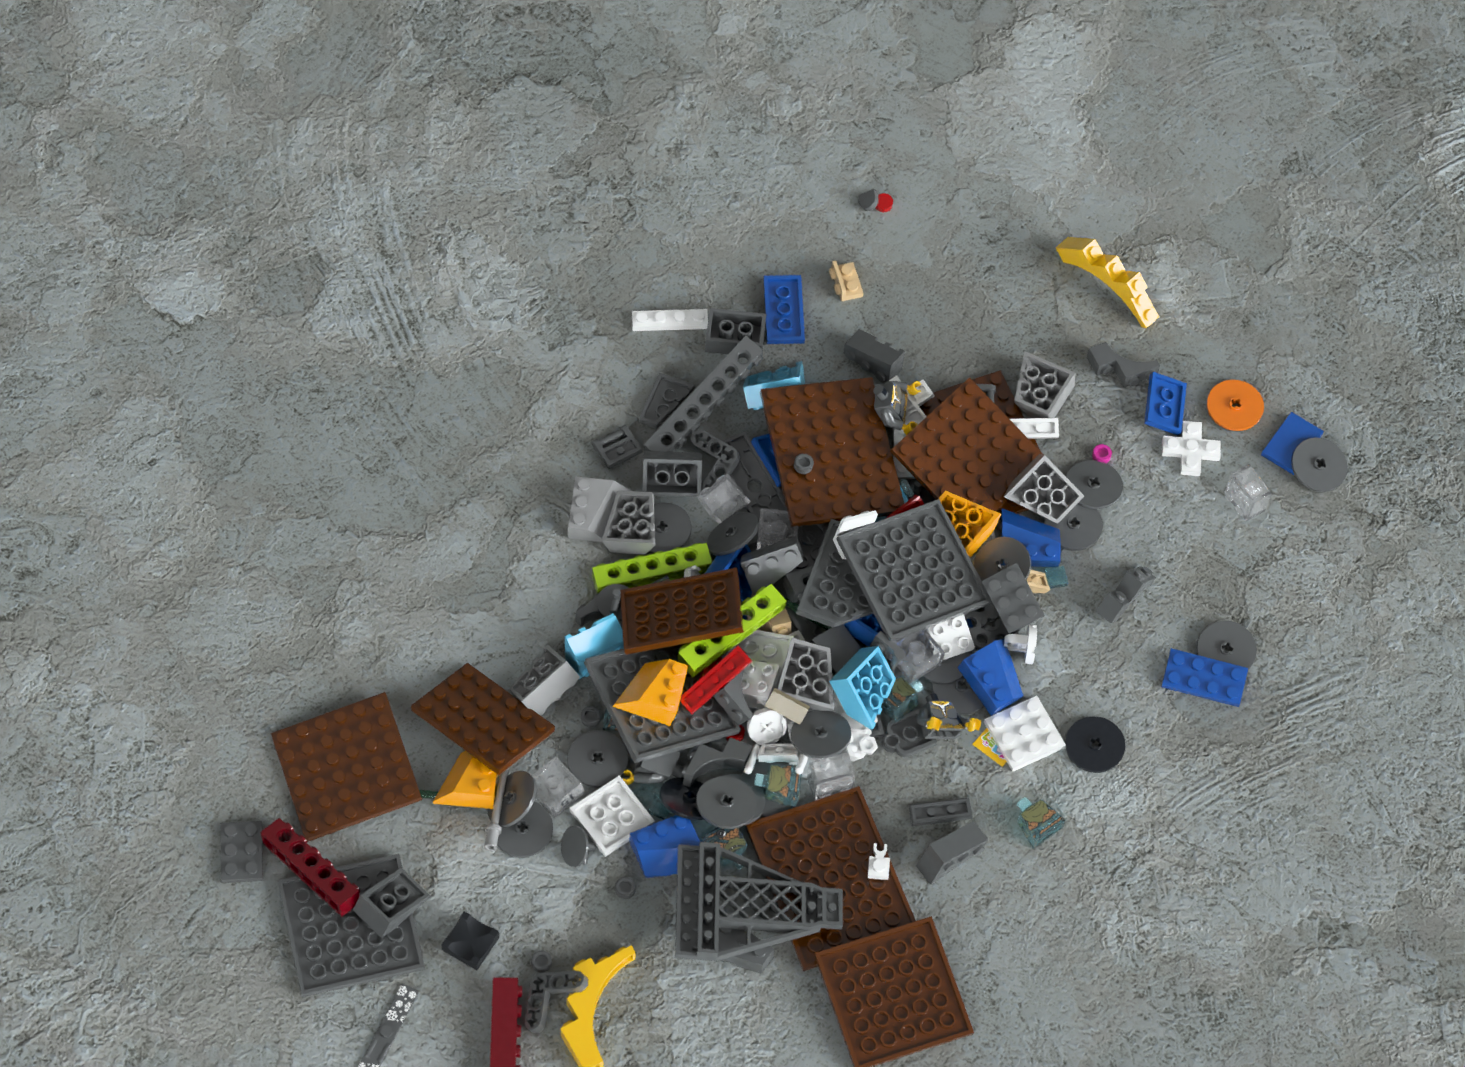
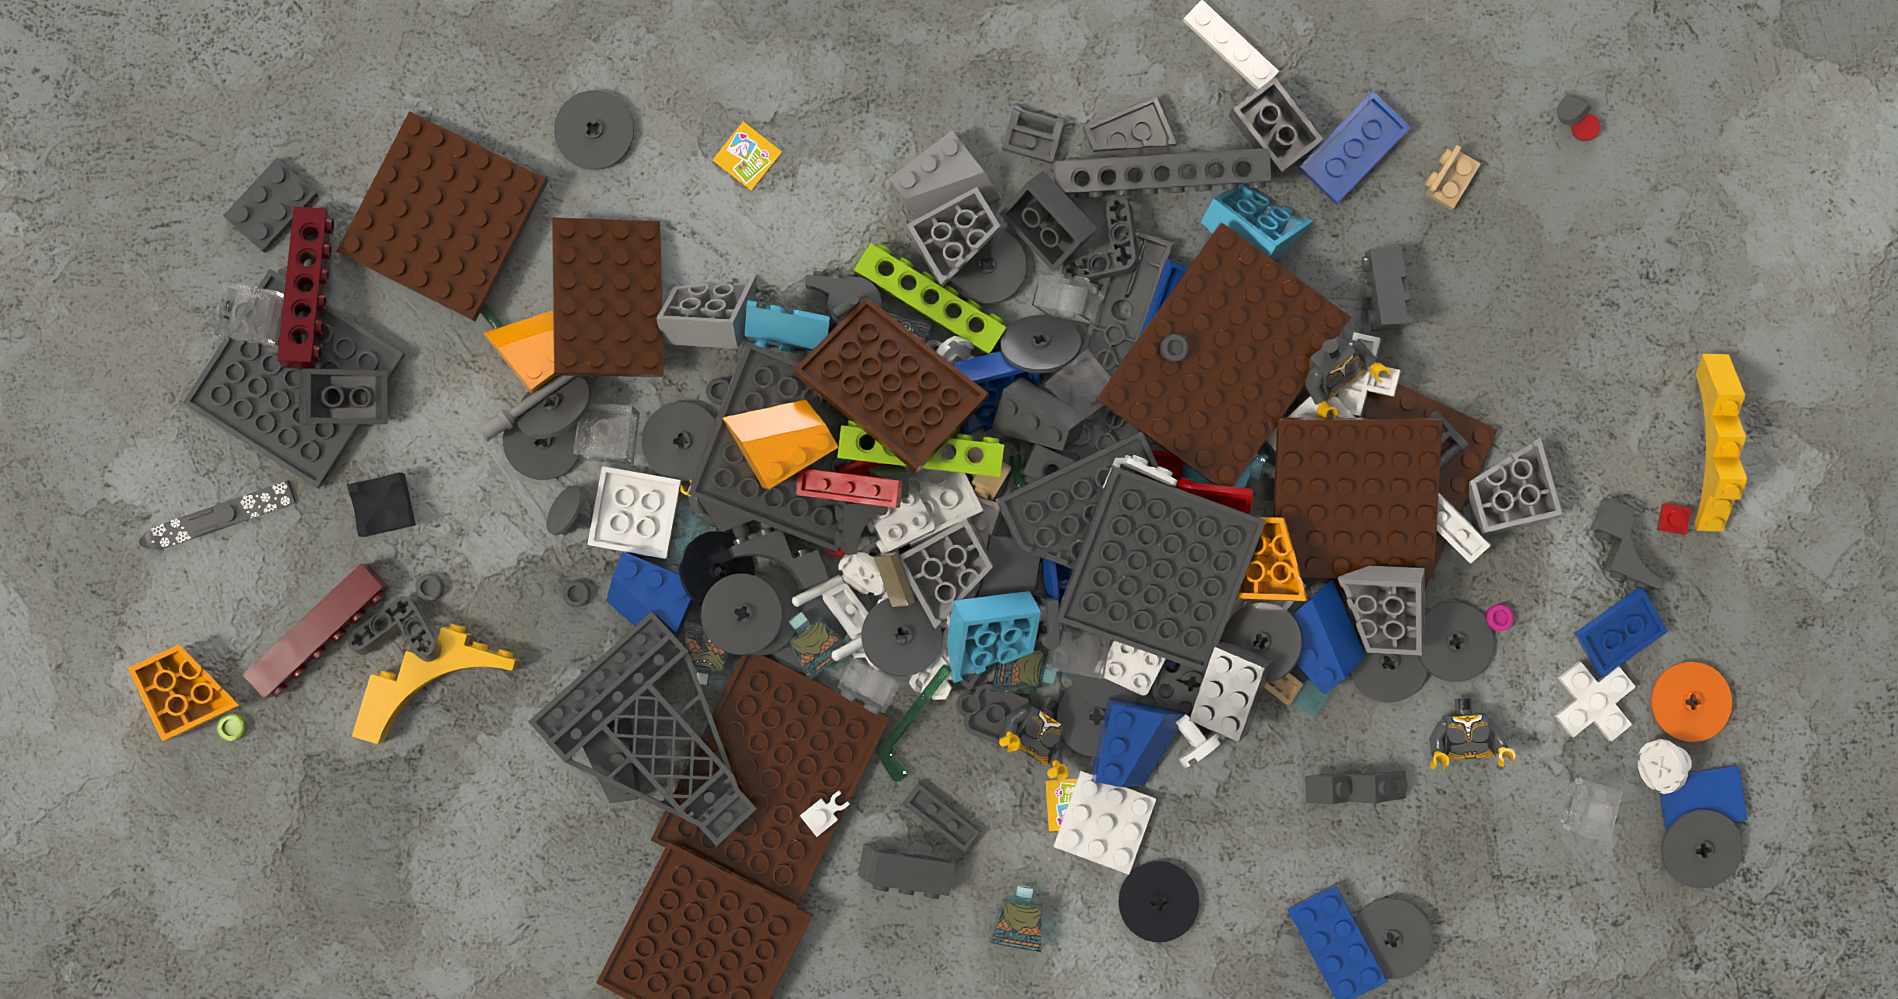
camera: 50 degrees right, 25 degrees up
(296, 905) = (249, 314): none -> clear brick
(396, 656) = (594, 109): none -> dark grey piece
(478, 592) = (747, 156): none -> sticker
(874, 807) = (885, 750): none -> clear green piece
(1130, 333) = (1674, 519): none -> red plate
(1151, 518) = (1467, 737): none -> torso
(1256, 442) = (1664, 766): none -> white tile

